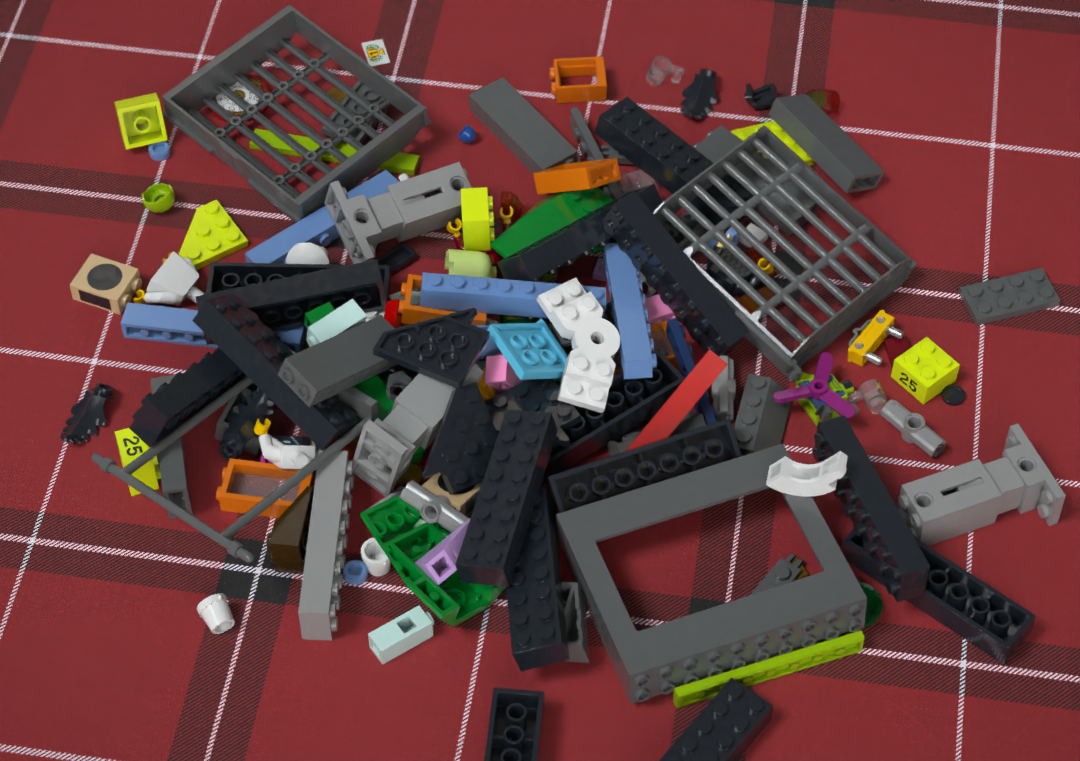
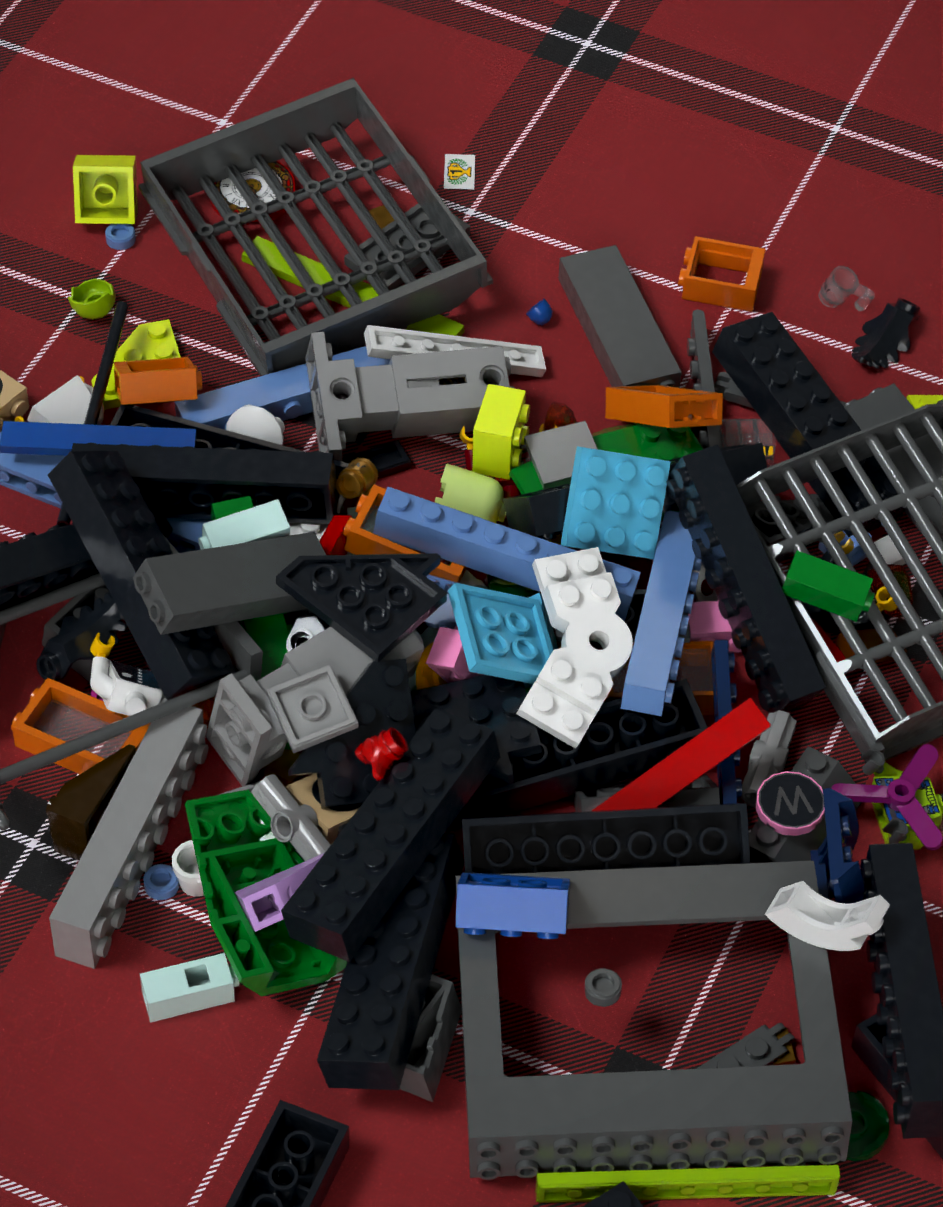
camera: 15 degrees right, 0 degrees up
(184, 295) = (59, 437): none -> blue tile
(192, 269) = (102, 379): none -> black piece
(228, 242) = (156, 380): none -> orange window
(384, 176) = (386, 341): none -> white plate
(393, 274) = (357, 478): none -> pearl gold piece
(426, 429) = (312, 708): none -> light grey tile
(482, 445) = (382, 751): none -> red animal
(524, 224) = (555, 452): none -> light grey tile
(575, 246) = (615, 502): none -> medium azure plate
(603, 521) = (512, 904): none -> slope
(678, 558) = (603, 987): none -> dark grey tile
(731, 266) = (828, 586): none -> green brick
(752, 412) = (790, 803): none -> tile
(794, 431) = (834, 863): none -> dark blue wedge

